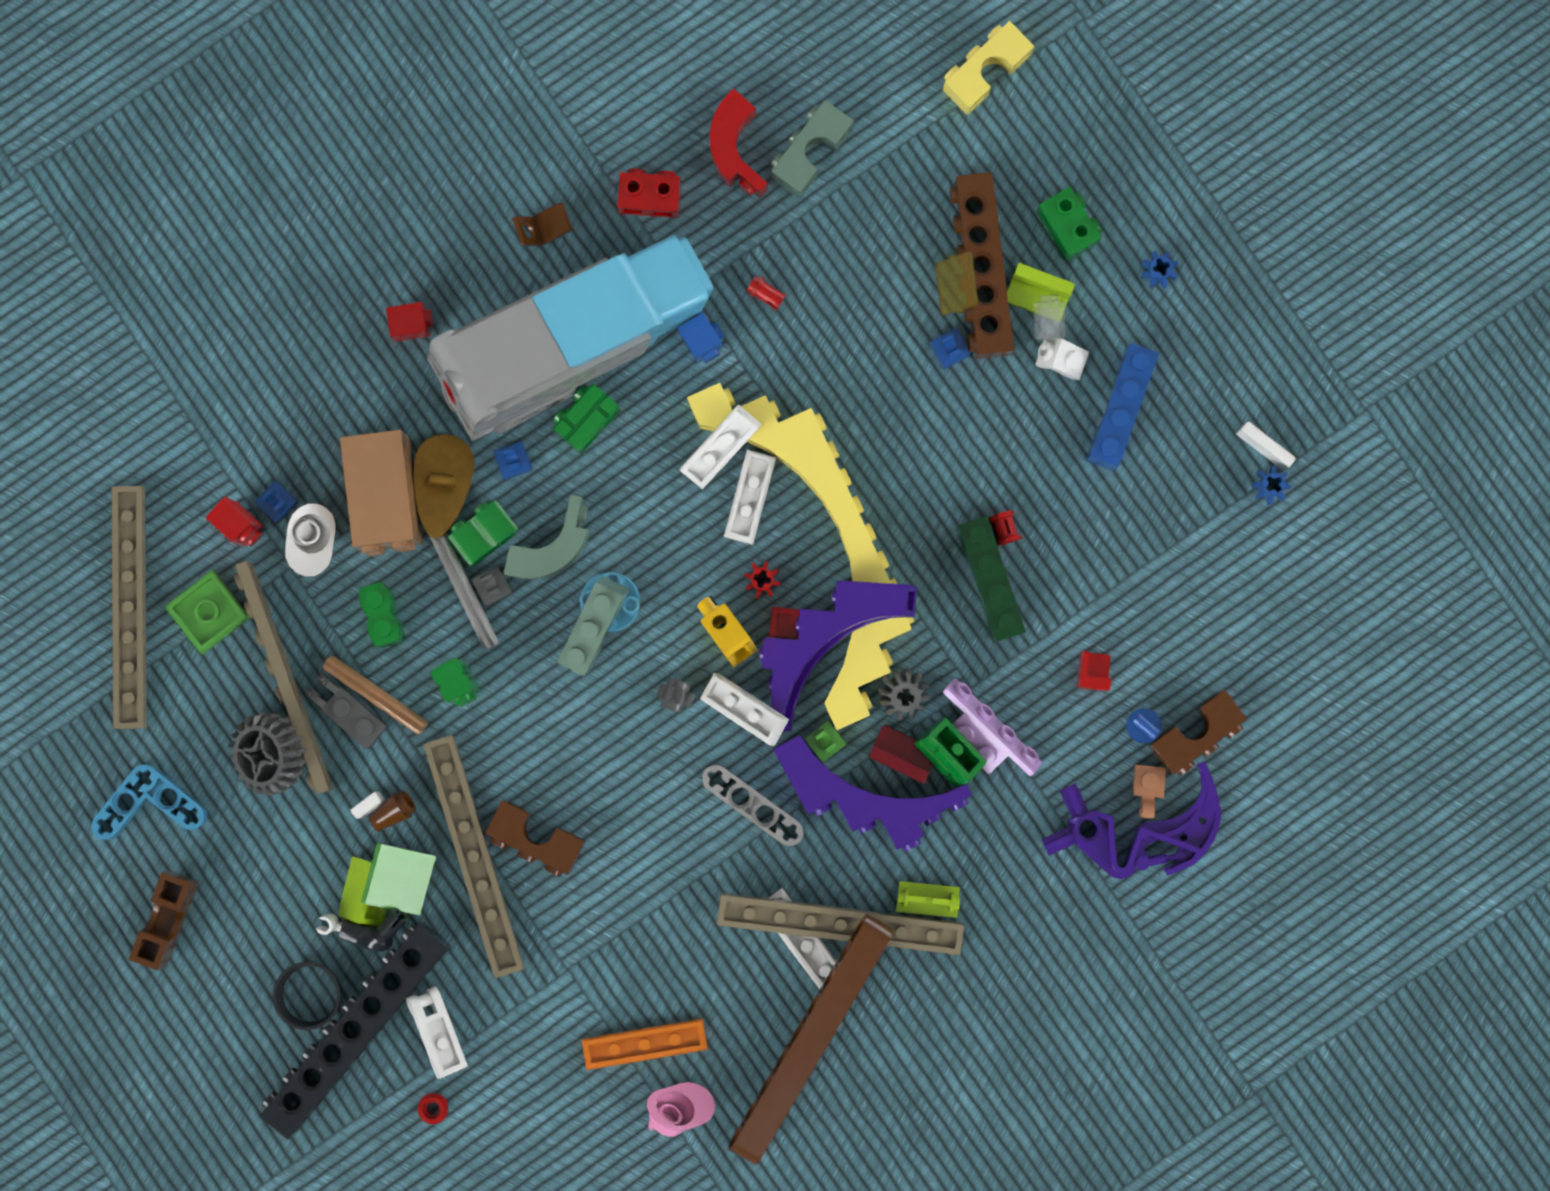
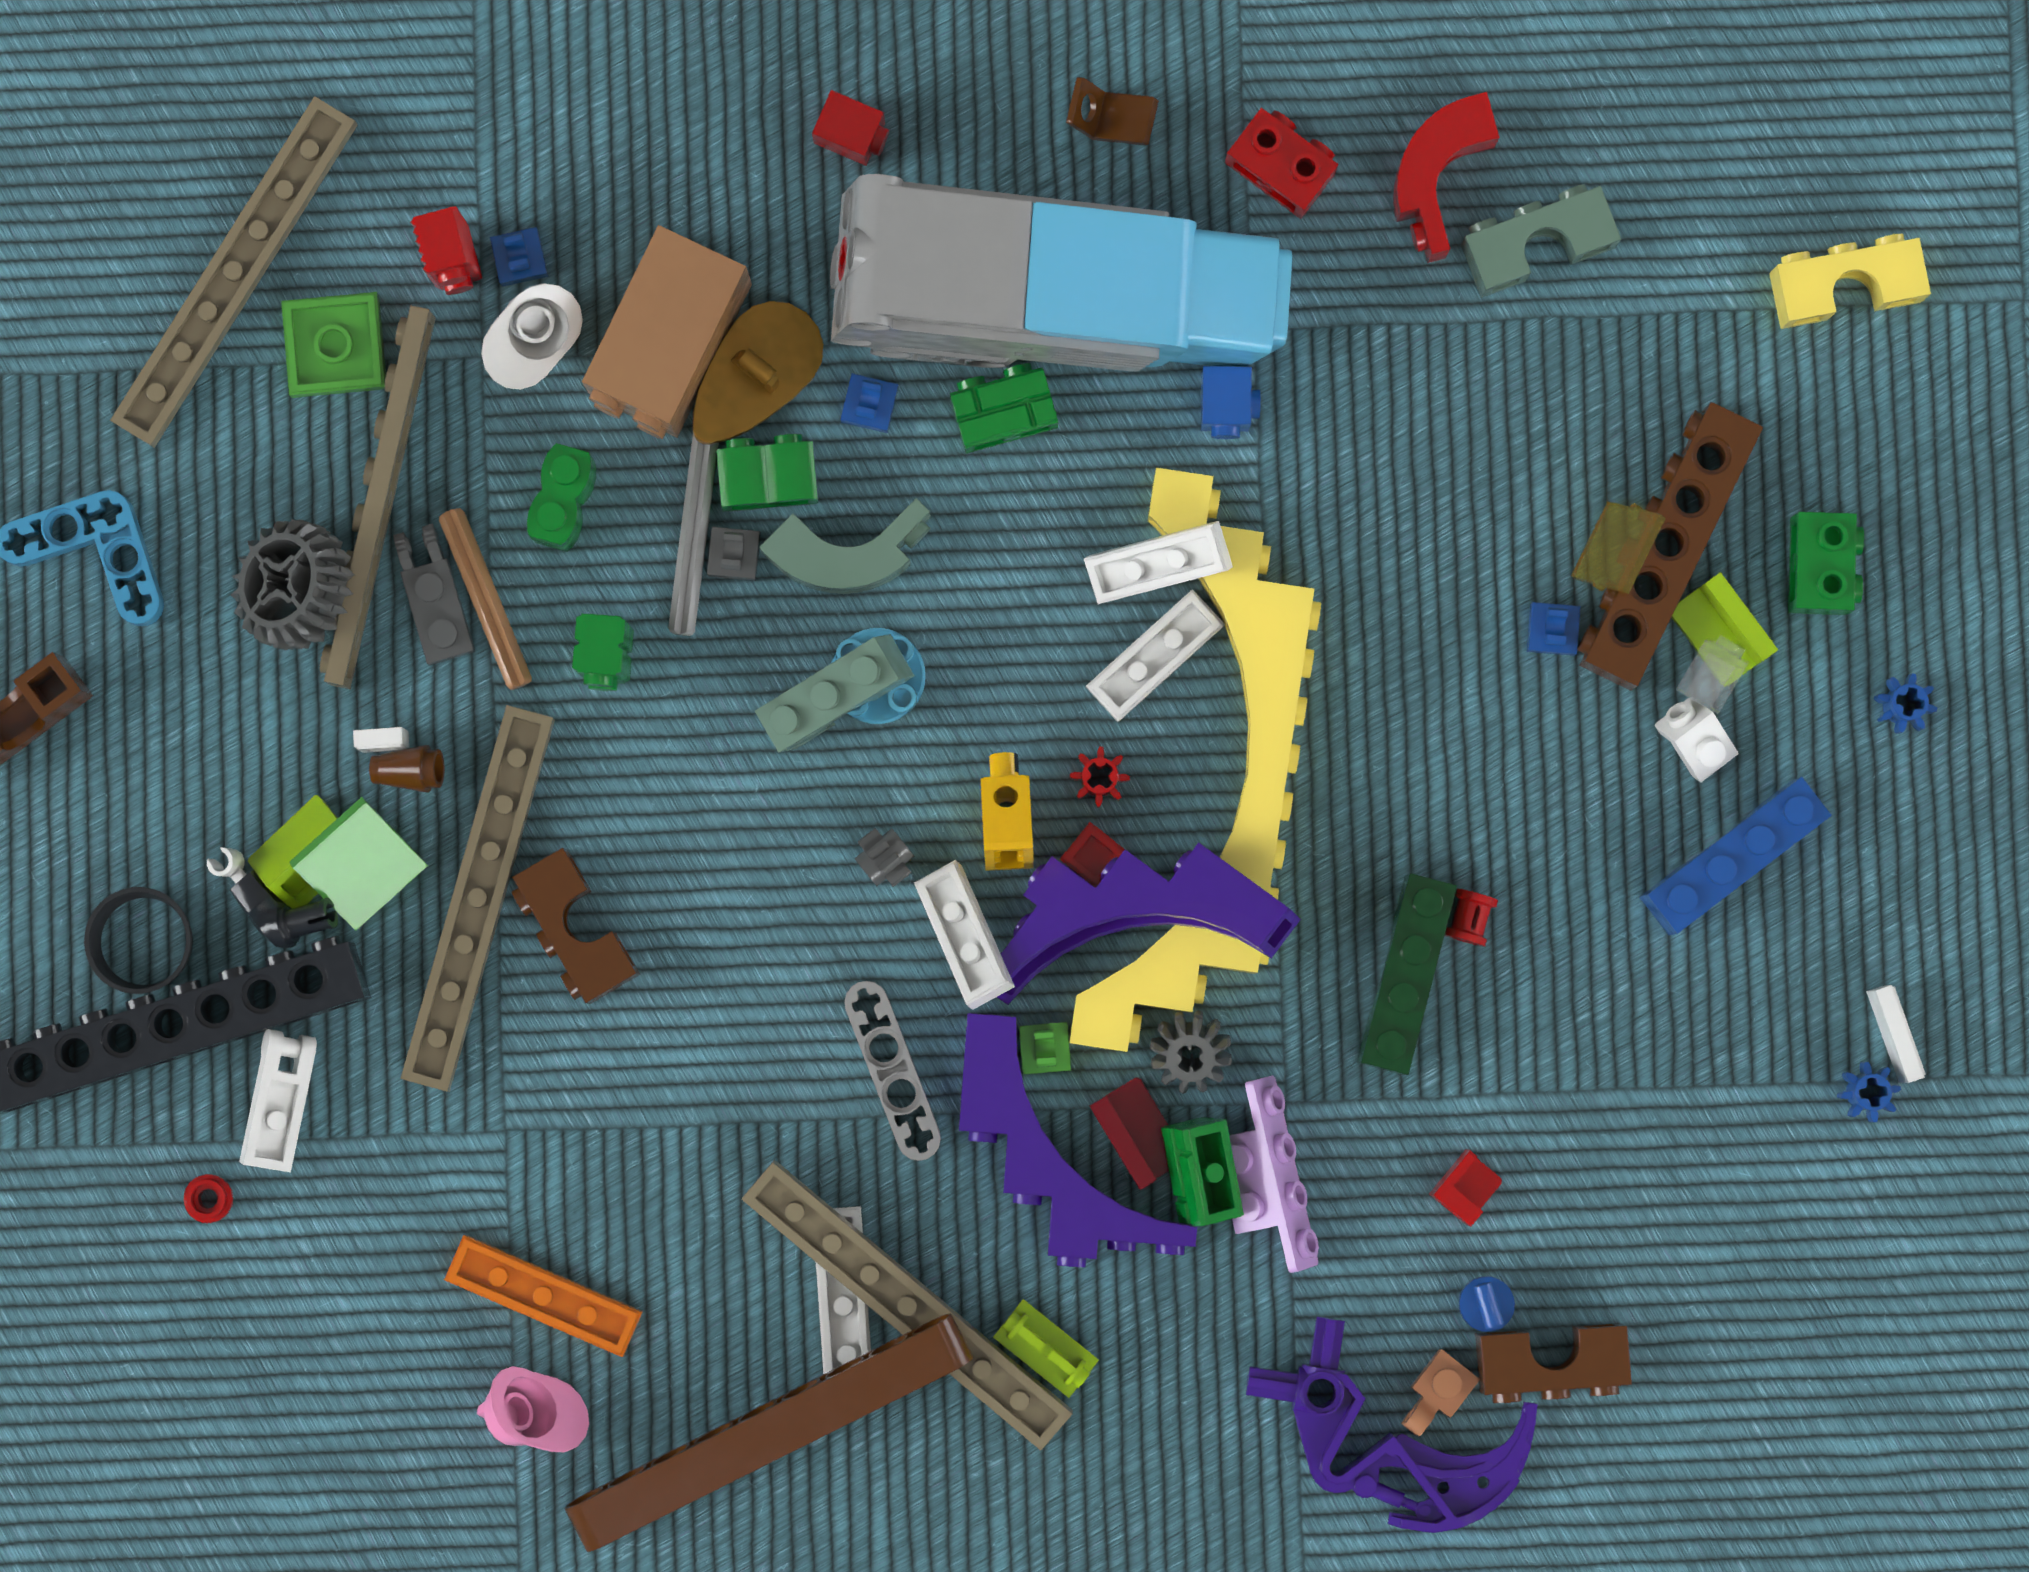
camera: 30 degrees right, 0 degrees up
(765, 292) = (1353, 394): red pin -> none

